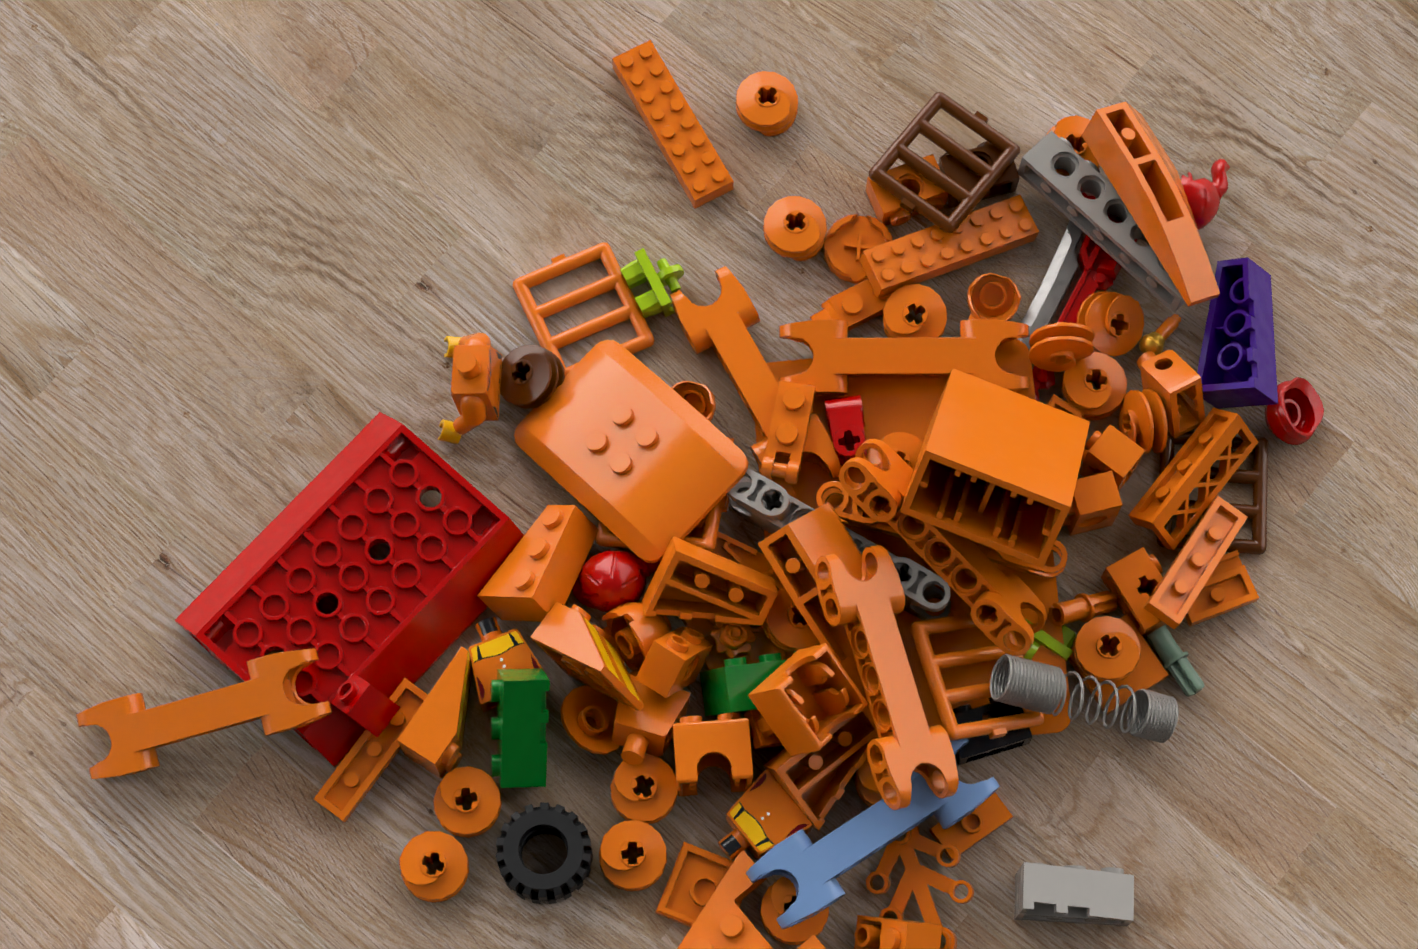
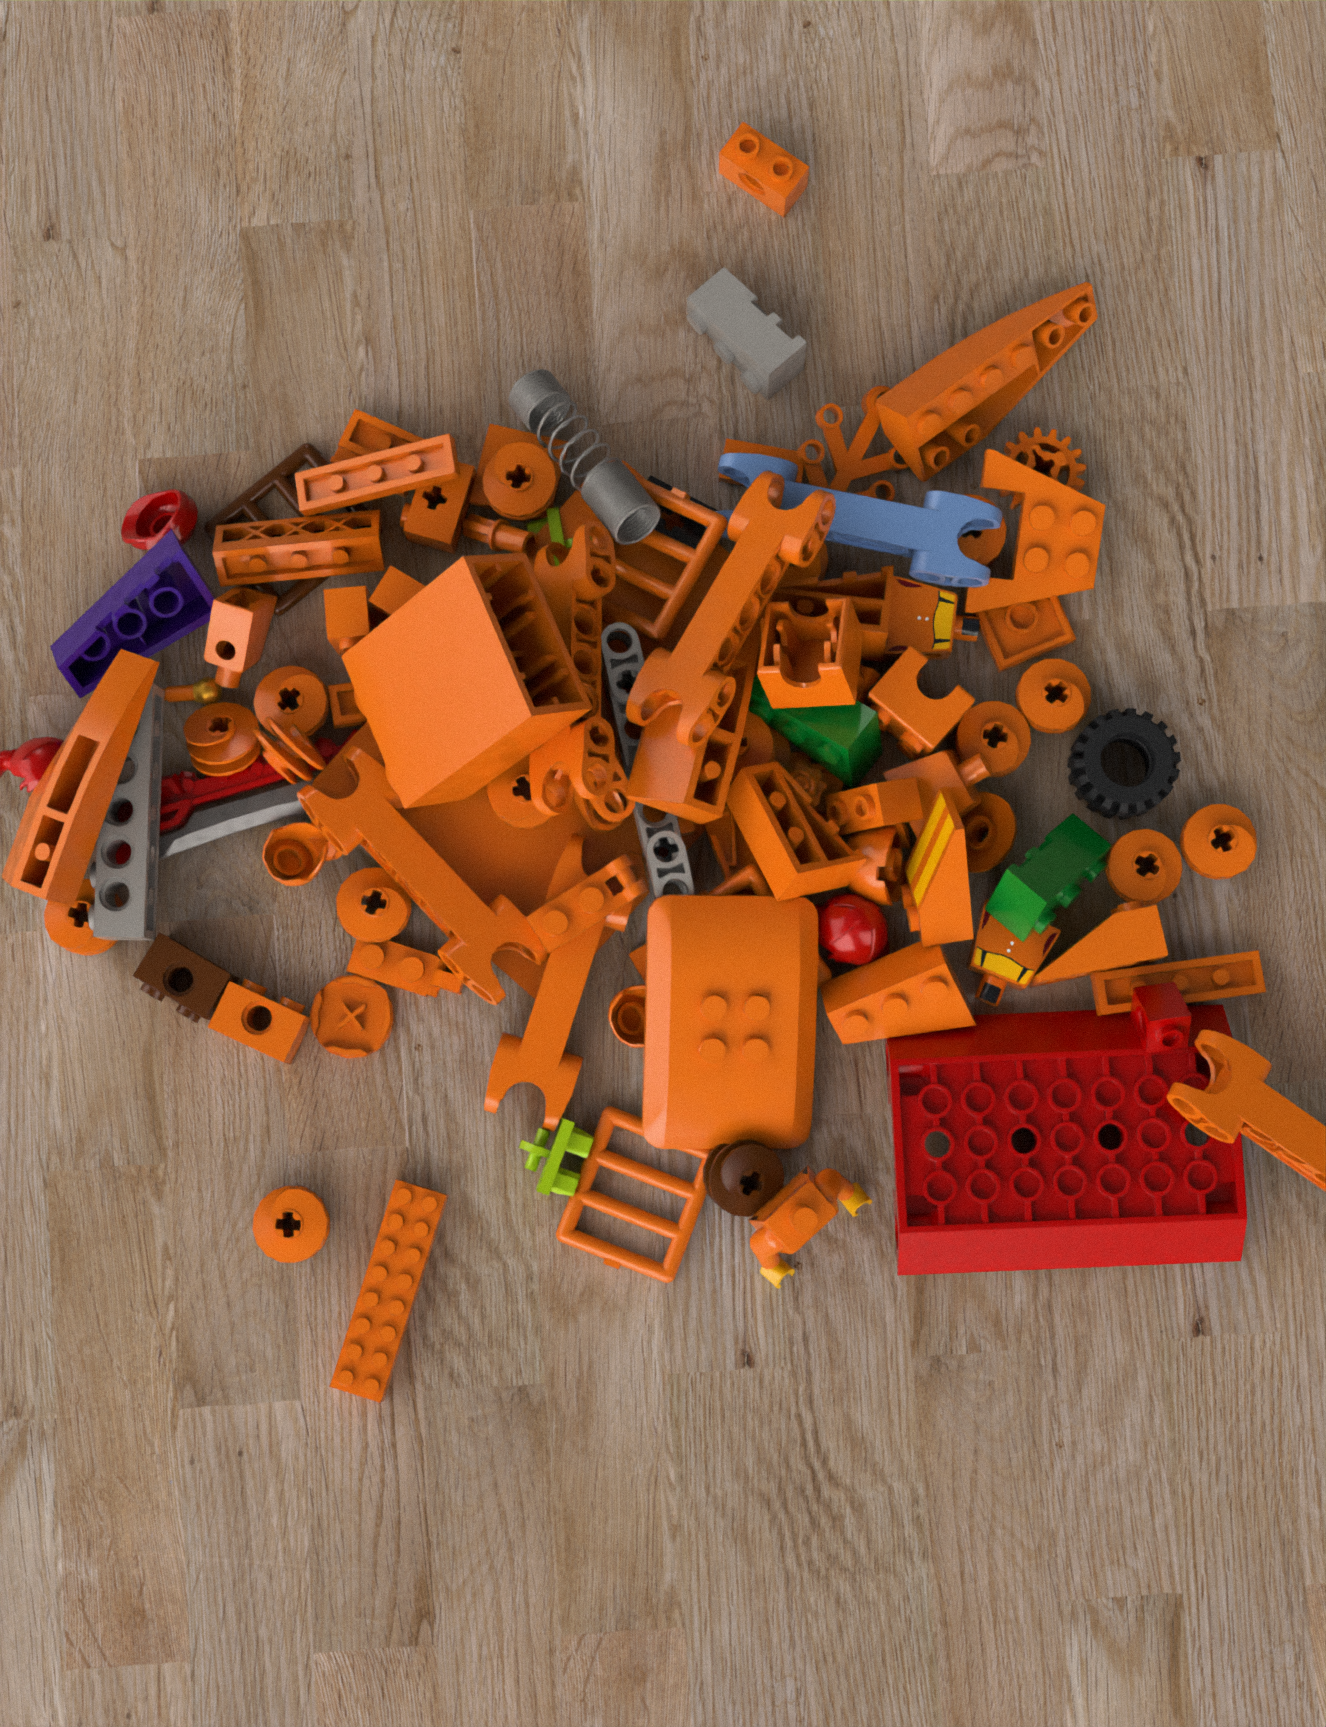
camera: 125 degrees left, 10 degrees up
(799, 243) = (374, 1102): orange piece -> none
(846, 425) = (525, 871): red piece -> none
(935, 252) = (279, 937): orange piece -> none
(968, 199) = (233, 1055): reddish brown bar -> none
(1144, 420) = (290, 630): orange piece -> none
(1175, 661) = (473, 425): sand green axle -> none

